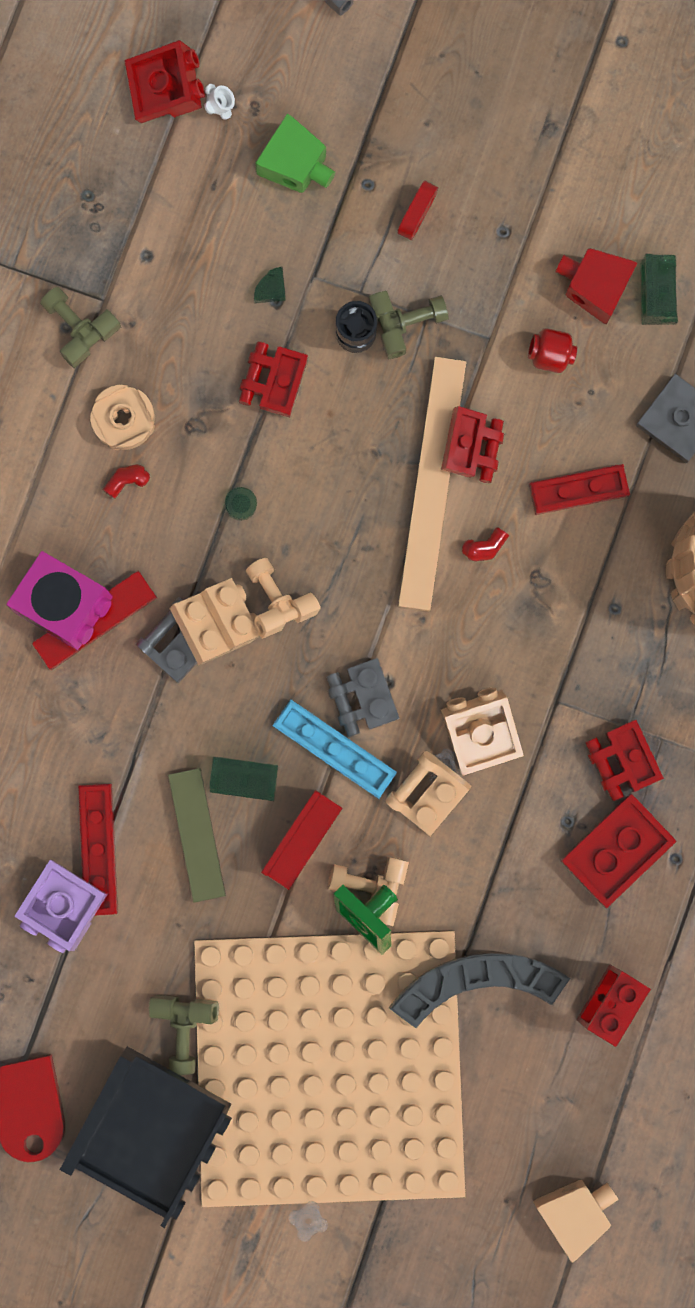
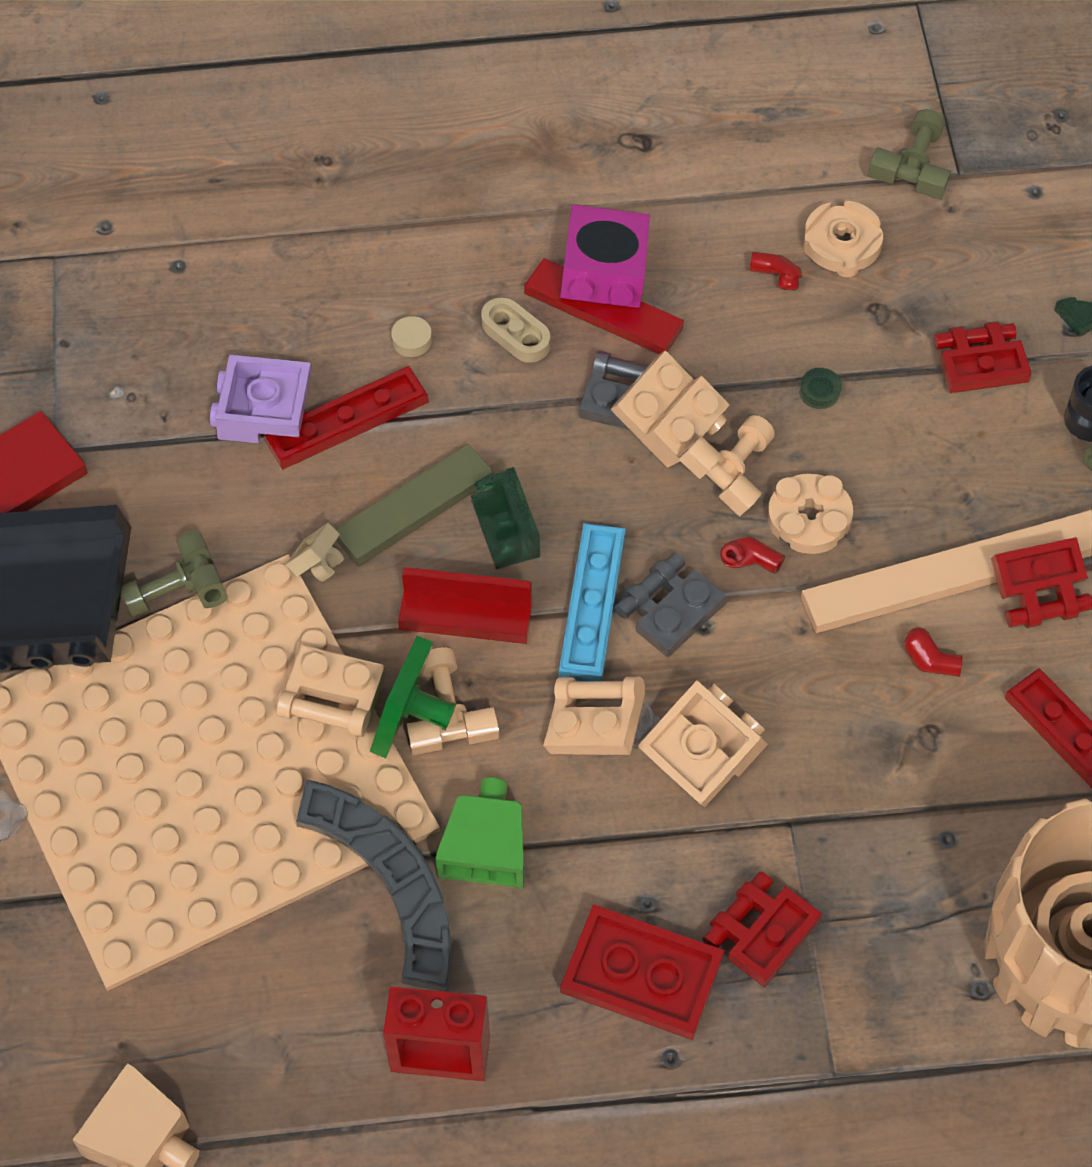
camera: 70 degrees right, 25 degrees down
(51, 771) = (411, 336): none -> tan tile
(86, 693) = (518, 332): none -> tan plate
(207, 924) = (316, 554): none -> tan tile
(317, 954) = (332, 679): none -> light nougat plate
(349, 624) = (749, 552): none -> red arm
(355, 558) = (816, 492): none -> light nougat plate
(480, 906) = (484, 839): none -> bright green torso

